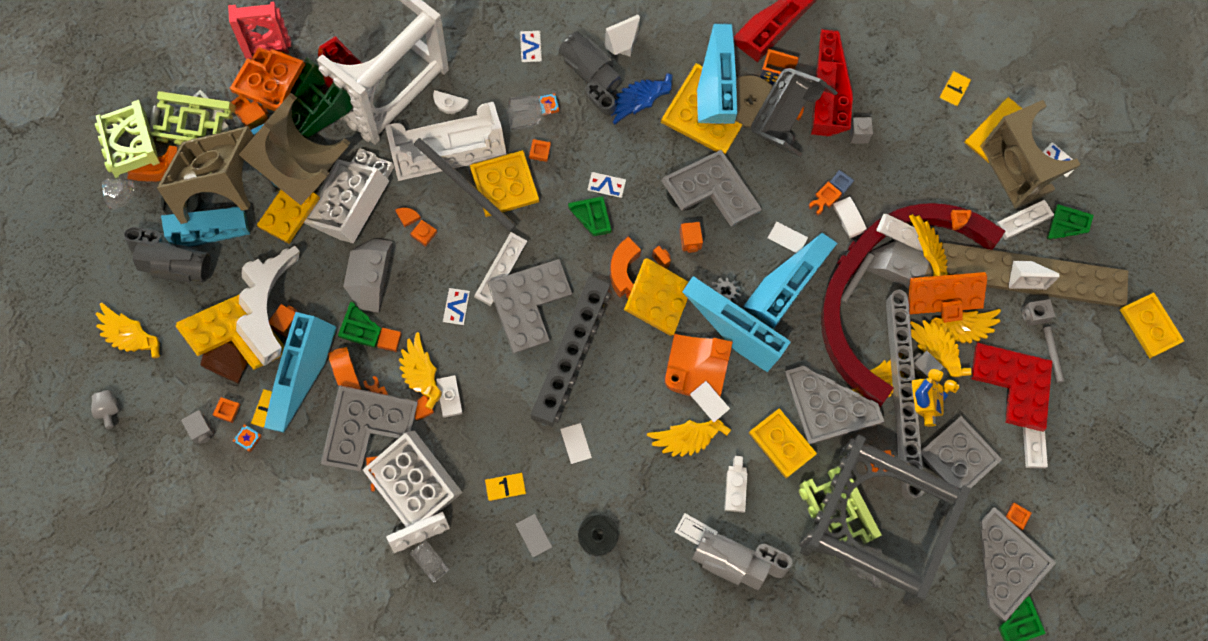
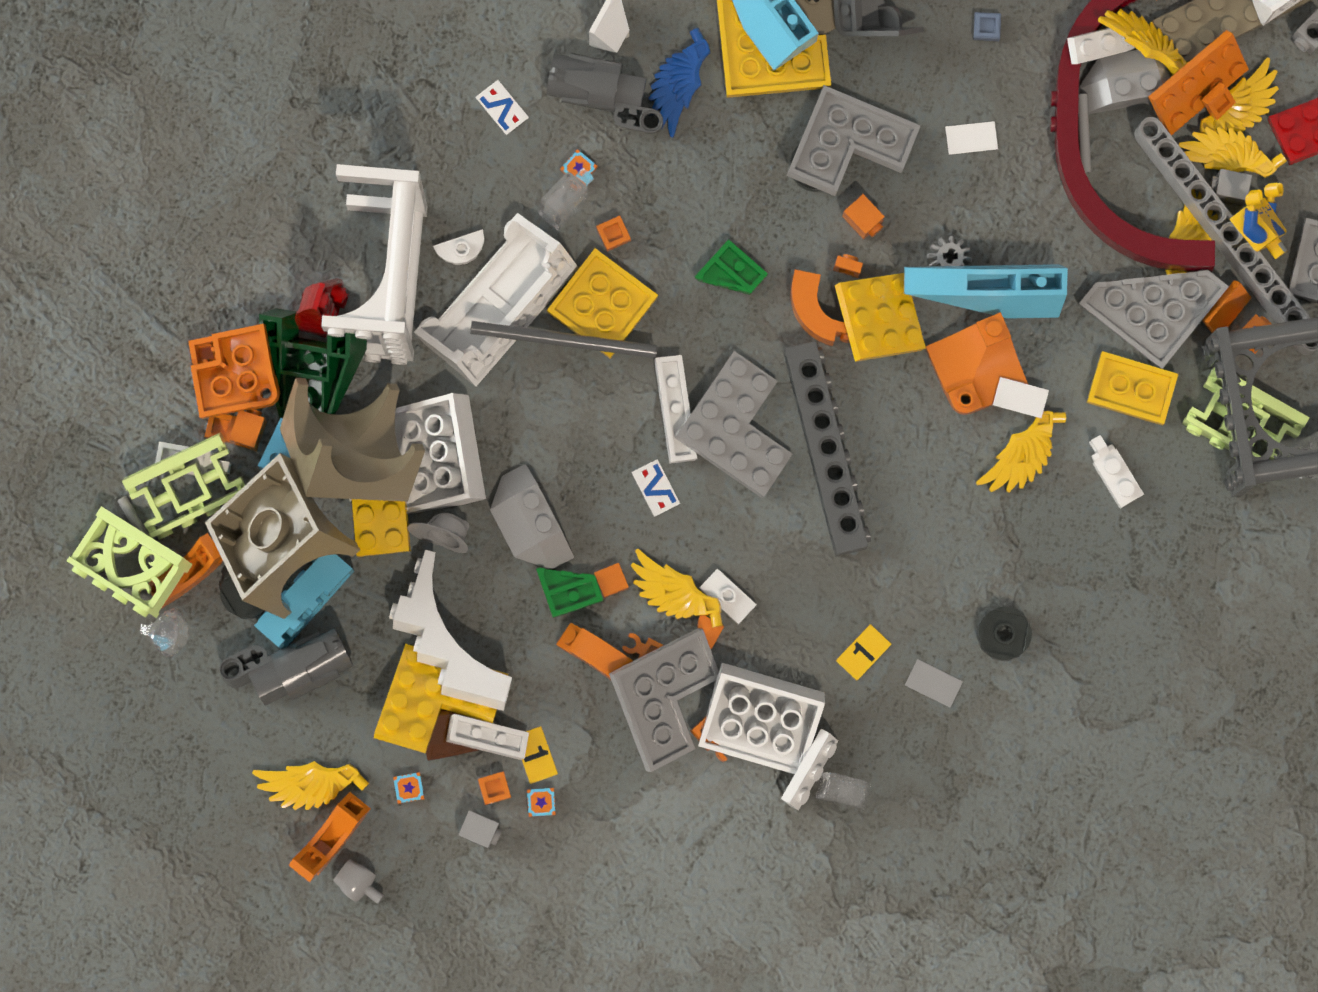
camera: 35 degrees left, 10 degrees up
(108, 372) = (330, 837): none -> orange arch
(179, 375) = (408, 788): none -> tile
(244, 376) = (487, 737): none -> white plate
(275, 38) = (196, 308): coral fence -> none
(282, 319) = (479, 641): orange brick -> none
(299, 367) = (540, 684): medium azure wedge -> none
(315, 244) = (444, 531): none -> light grey piece
(370, 159) = (428, 387): white slope -> none
(407, 216) = (519, 421): orange tile -> none
(423, 233) = (553, 428): orange plate -> none
(575, 443) = (905, 549): white sticker -> none
(606, 184) = (718, 219): white sticker -> none
(692, 529) = (1105, 553): white sticker -> none
(739, 563) = (1176, 556): light grey piece -> none
(786, 283) = (1010, 192): medium azure wedge -> none
(826, 196) = (983, 55): orange plate -> none
(850, 217) = (1027, 64): white slope -> none
(877, 434) = (1227, 307): none -> orange tile

